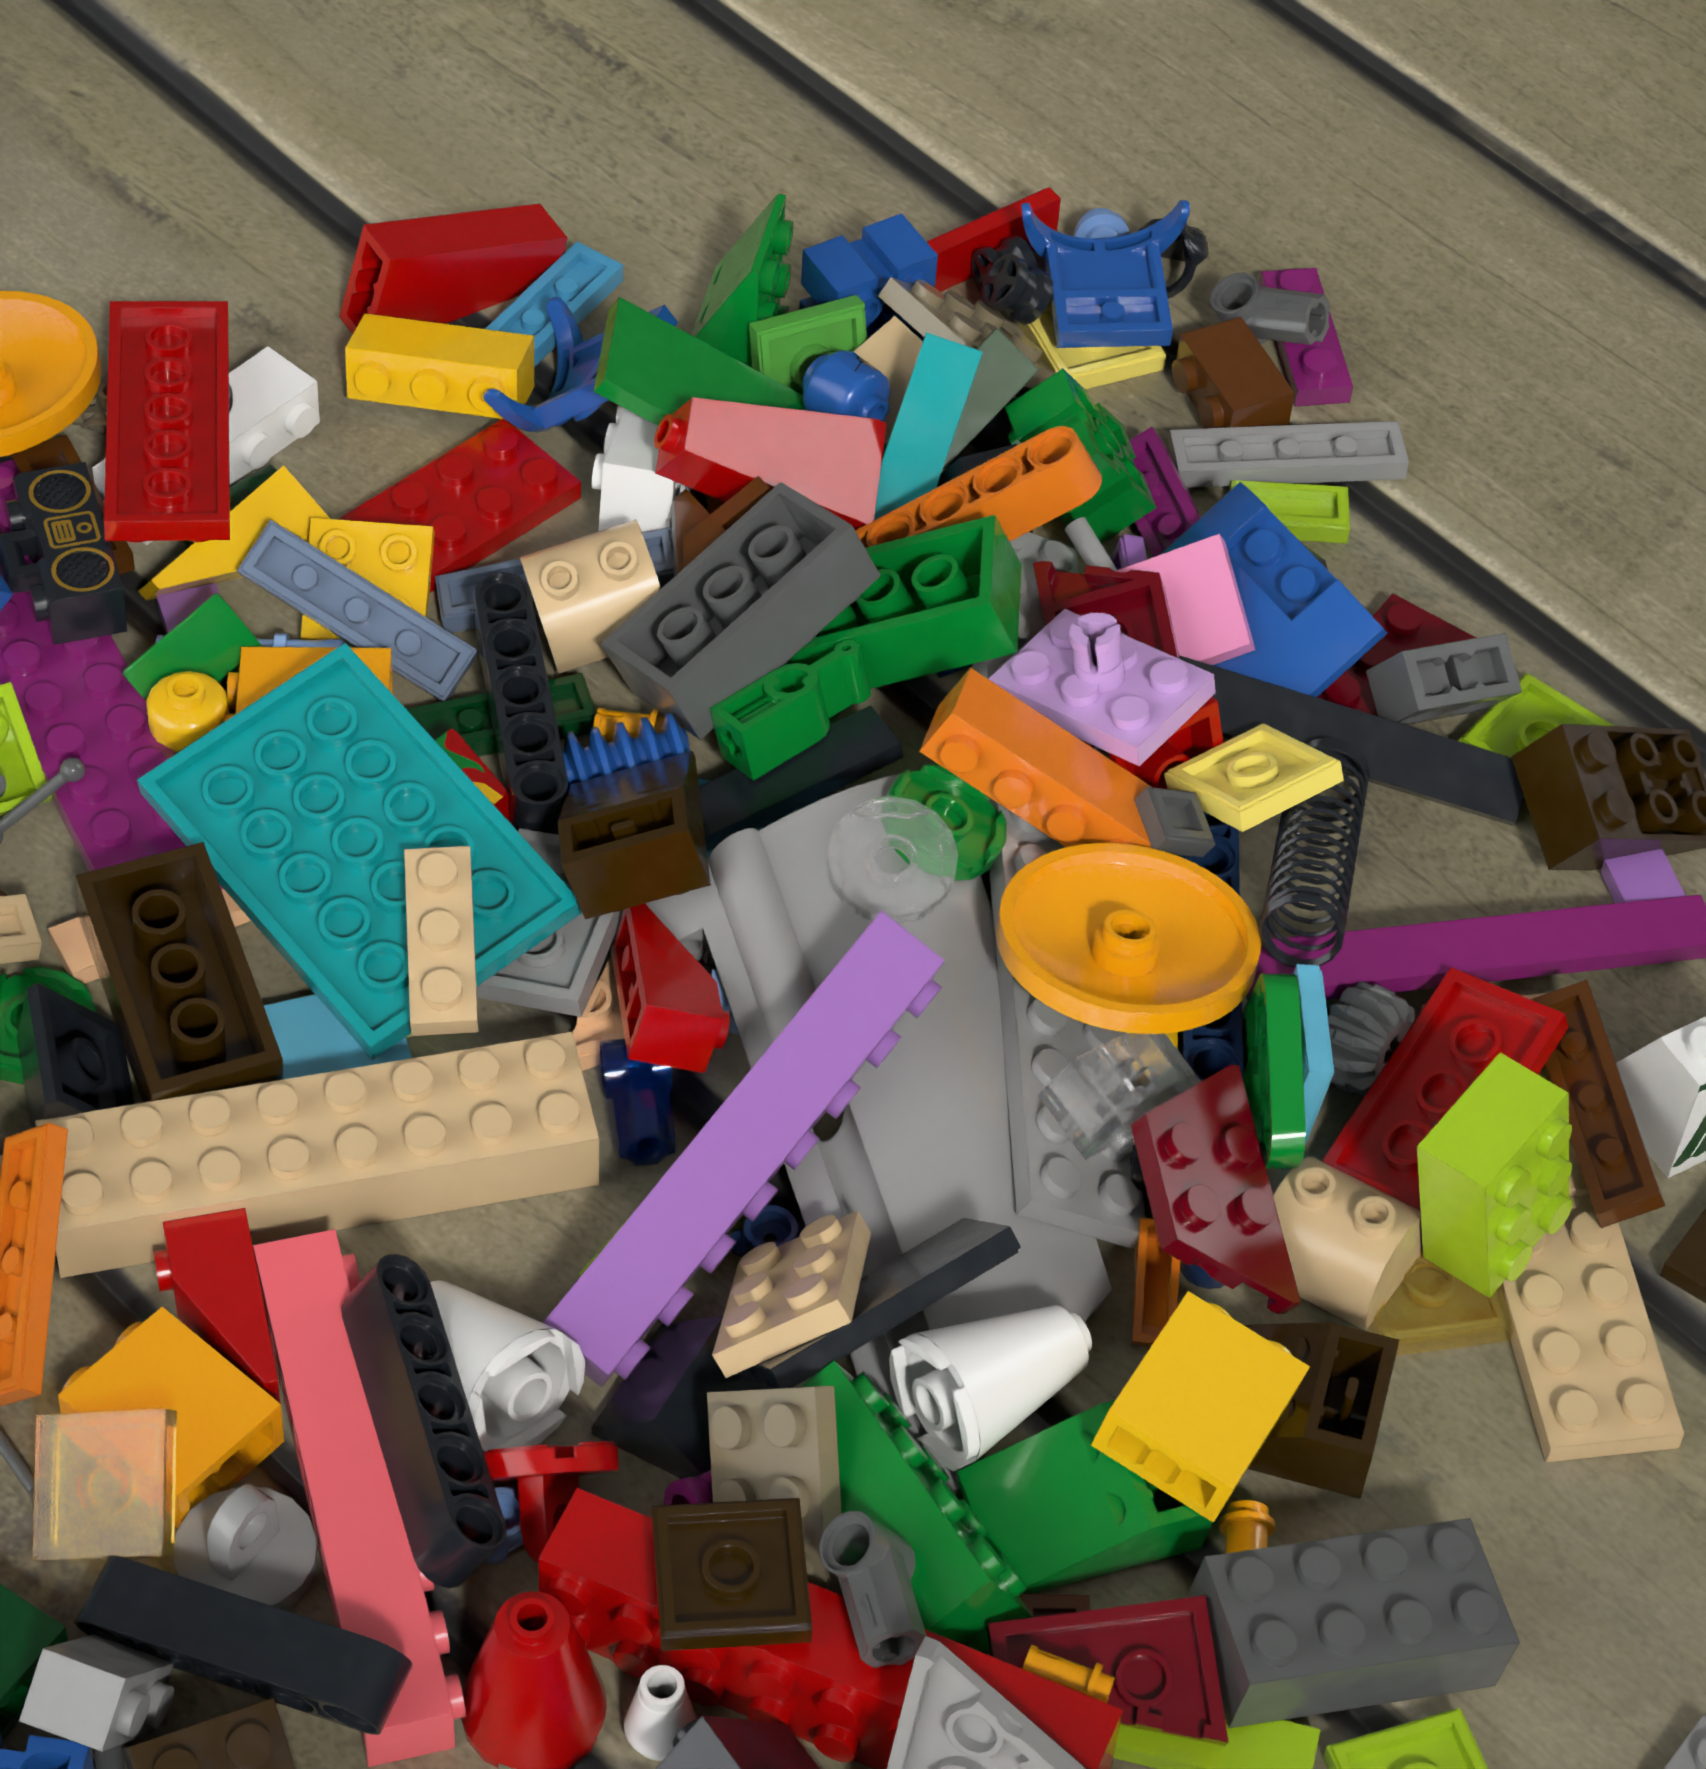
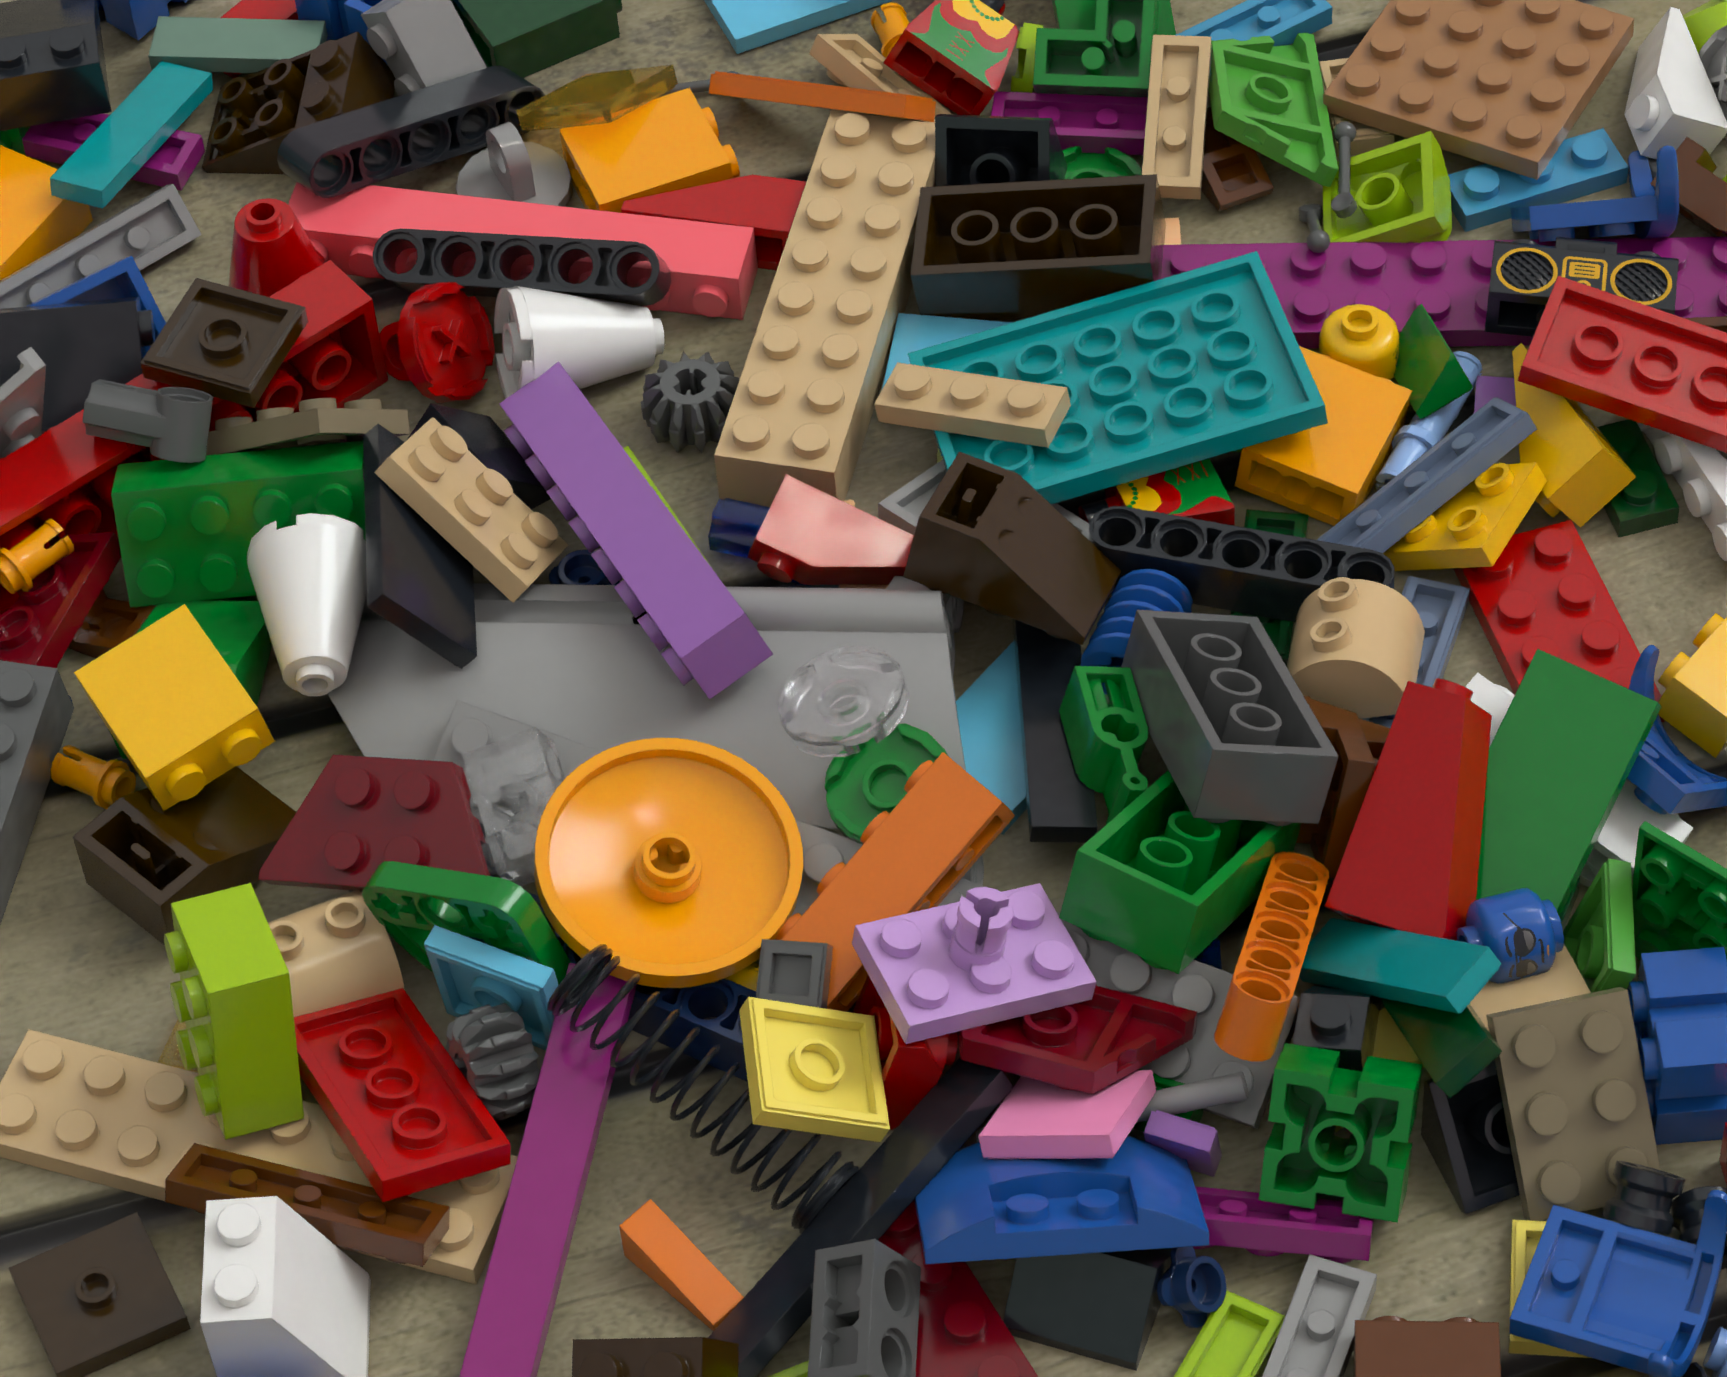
camera: 125 degrees right, 0 degrees up
(500, 1232) = (688, 400): none -> dark grey gear
(1441, 867) = (677, 1265): none -> orange piece

